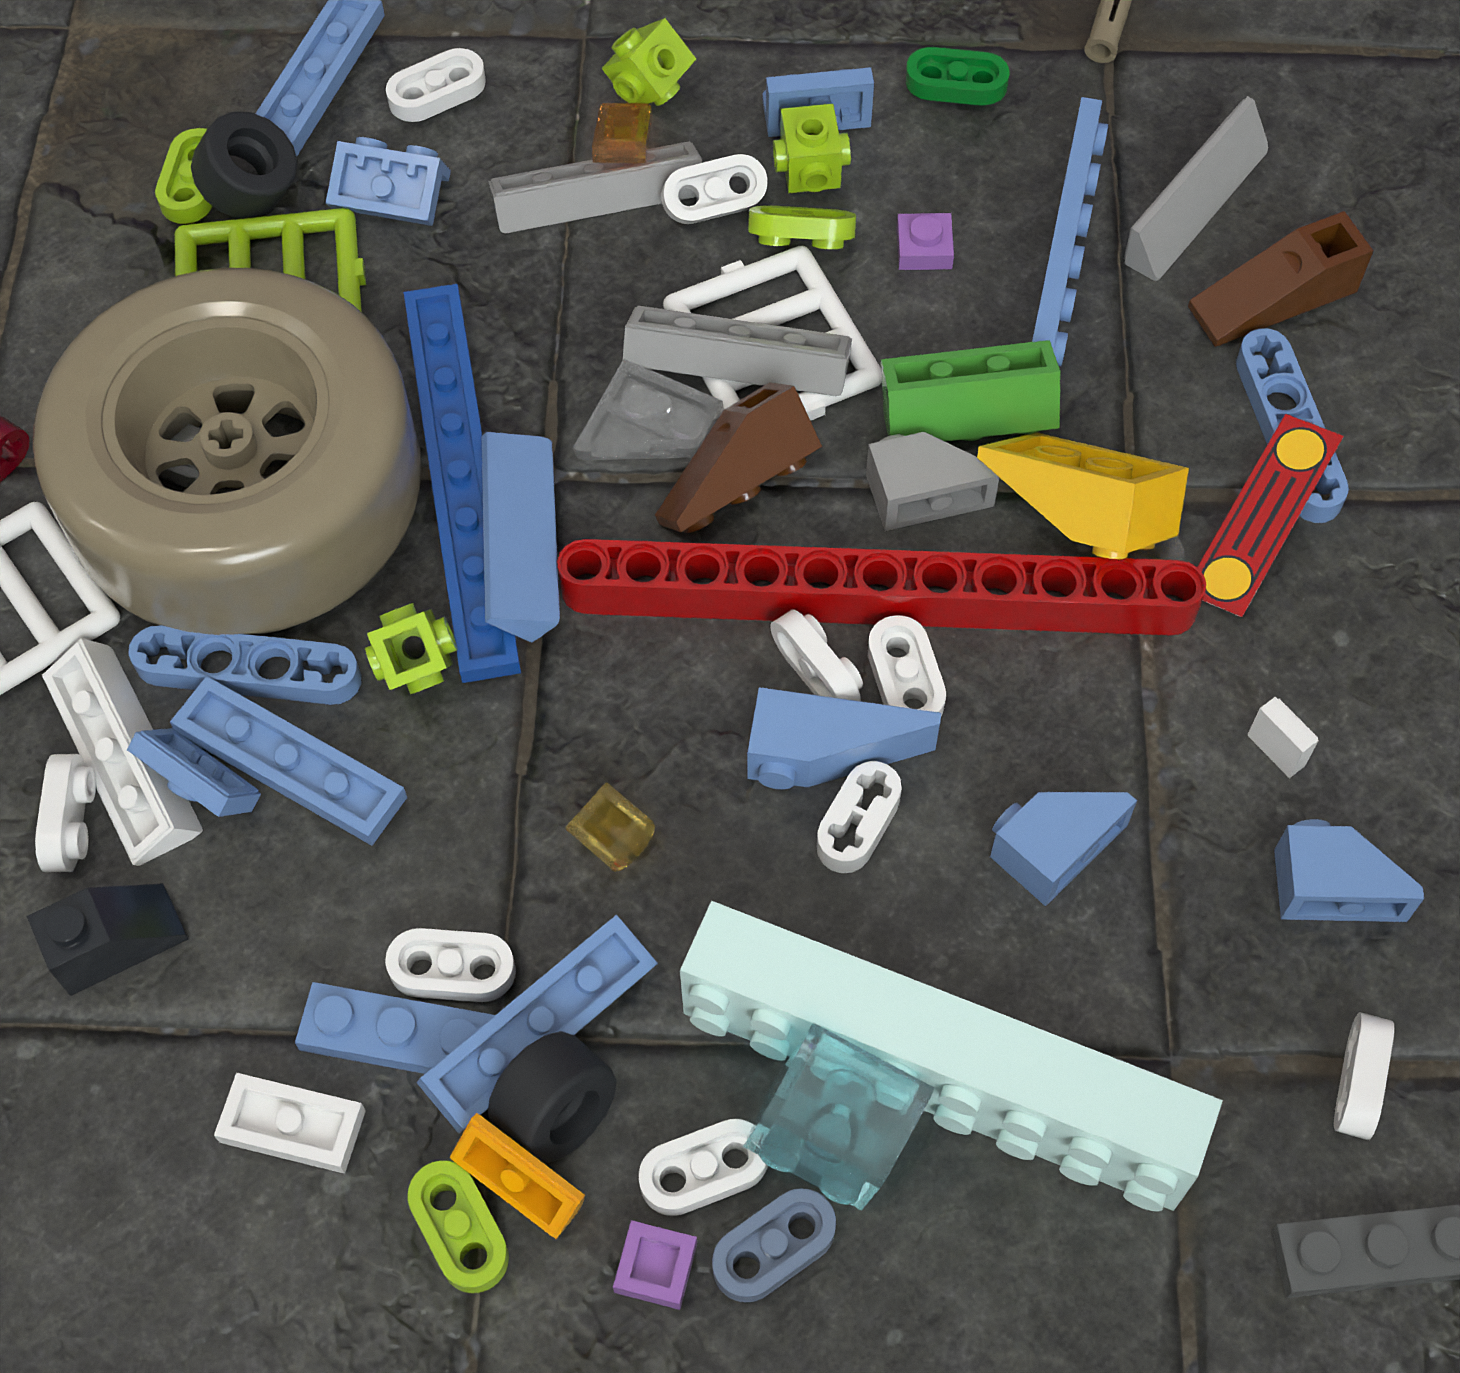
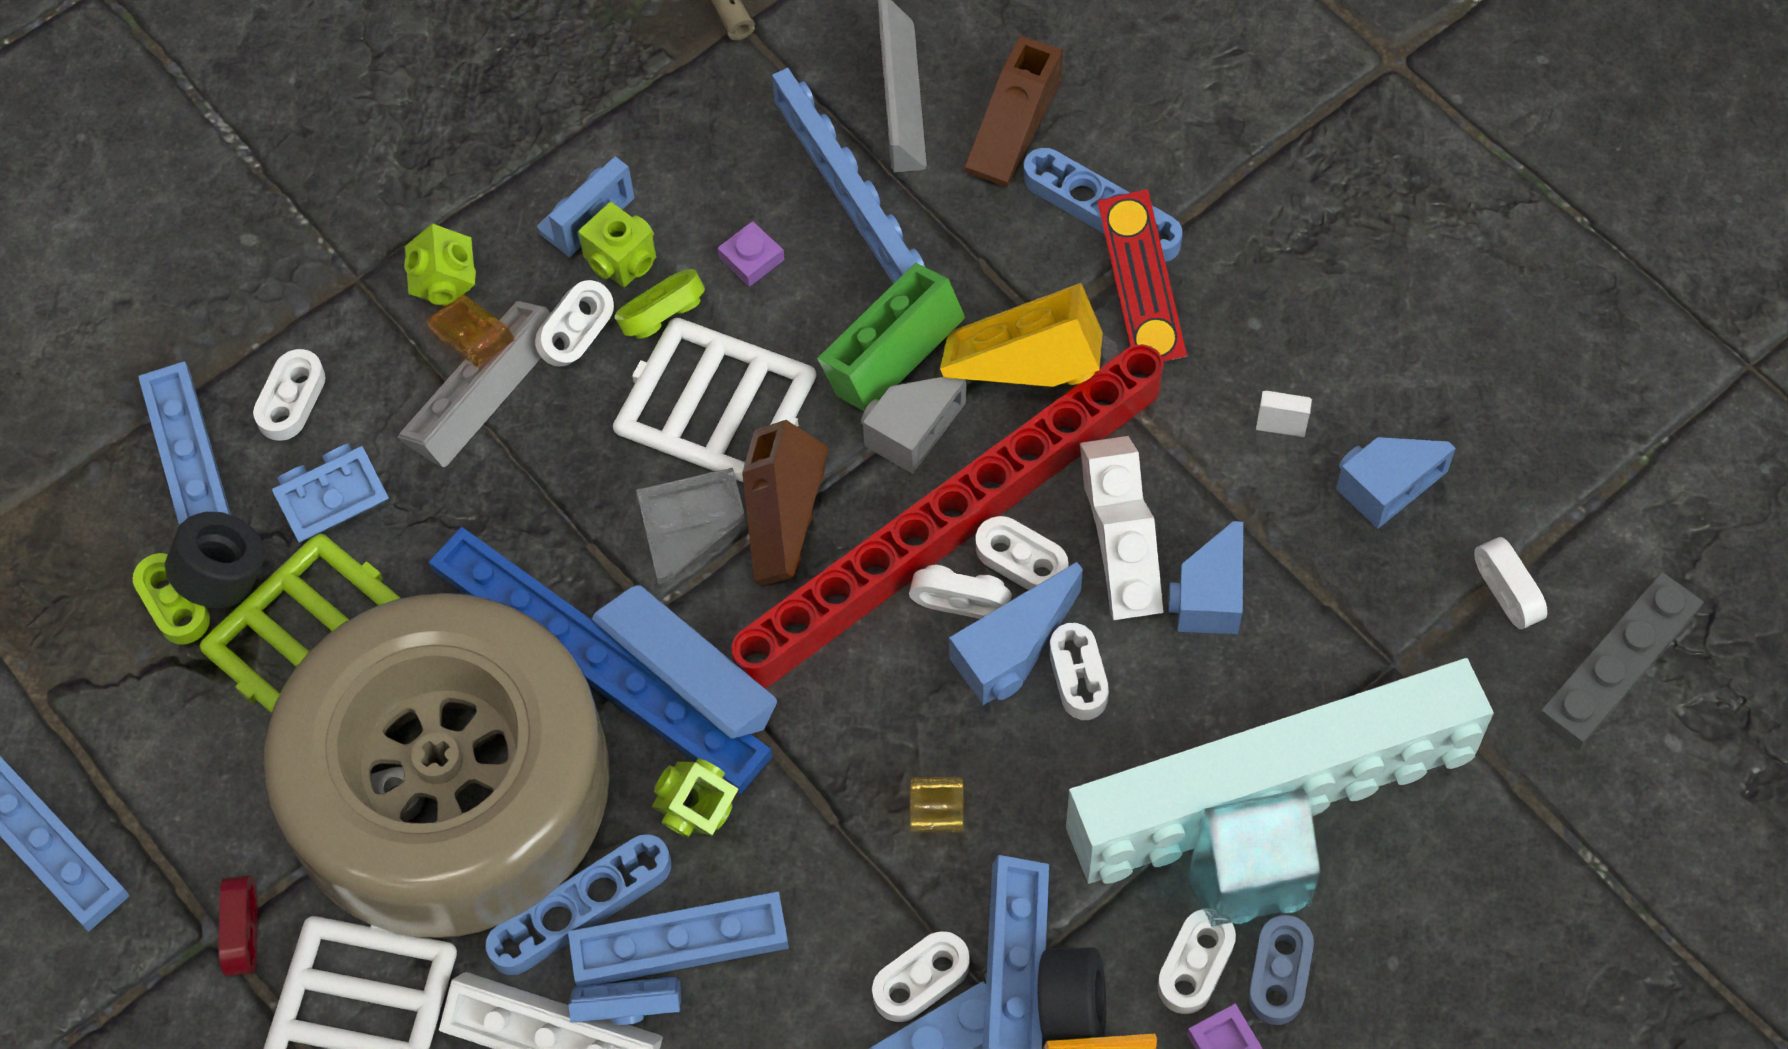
camera: 40 degrees left, 0 degrees up
(737, 350) = (705, 425): light grey slope -> none
(957, 76) = (660, 118): green plate -> none
(1019, 717) = (1123, 526): none -> white arch

